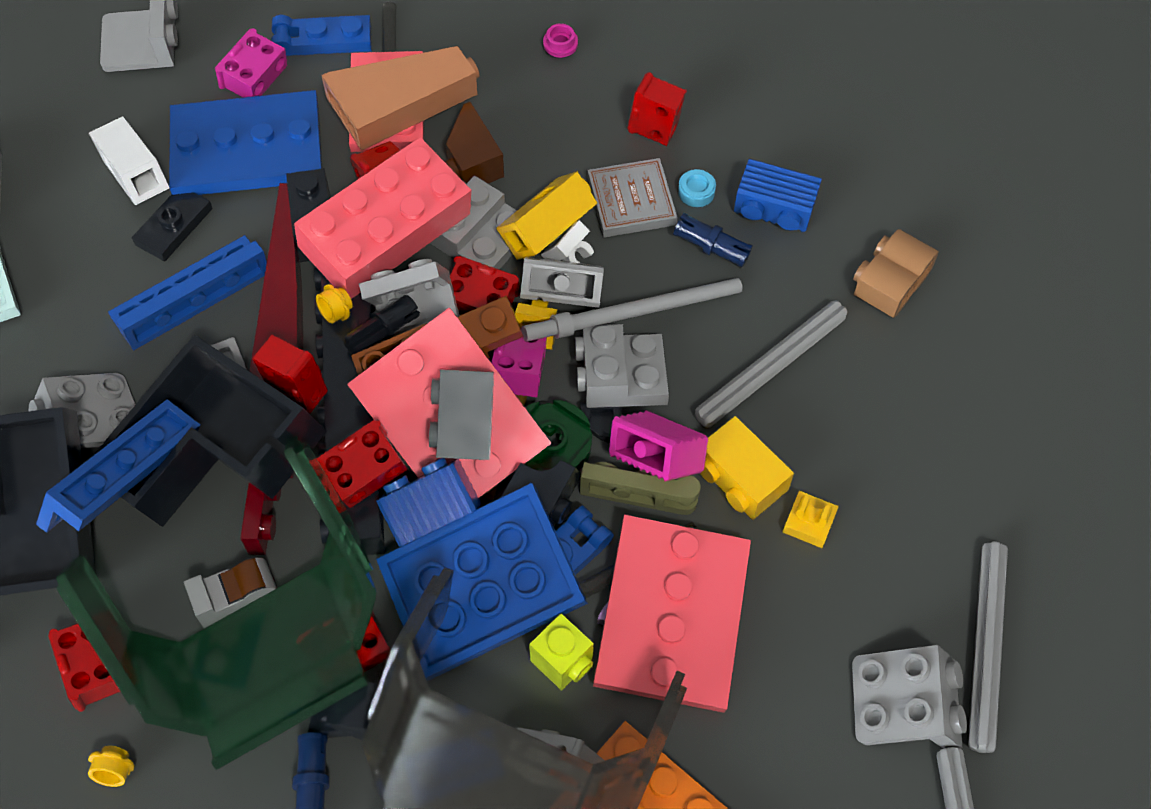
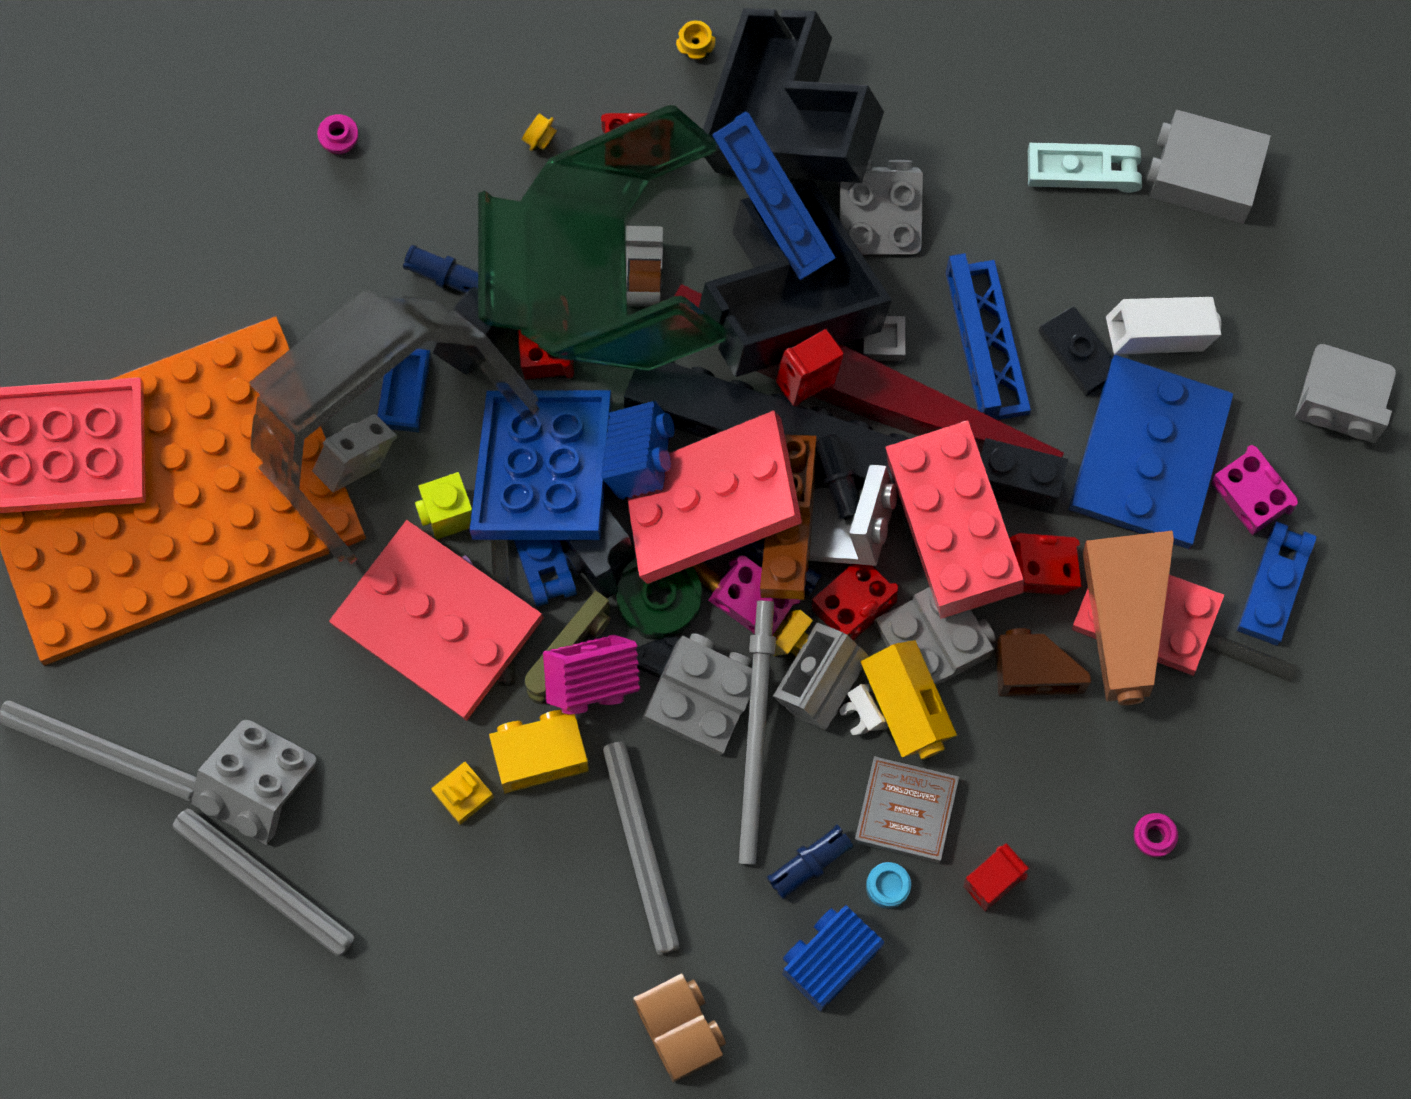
camera: 115 degrees right, 10 degrees up
(334, 303) = (878, 440): yellow plate -> none
(360, 461) = (692, 398): red piece -> none
(463, 414) = (687, 493): brick -> none

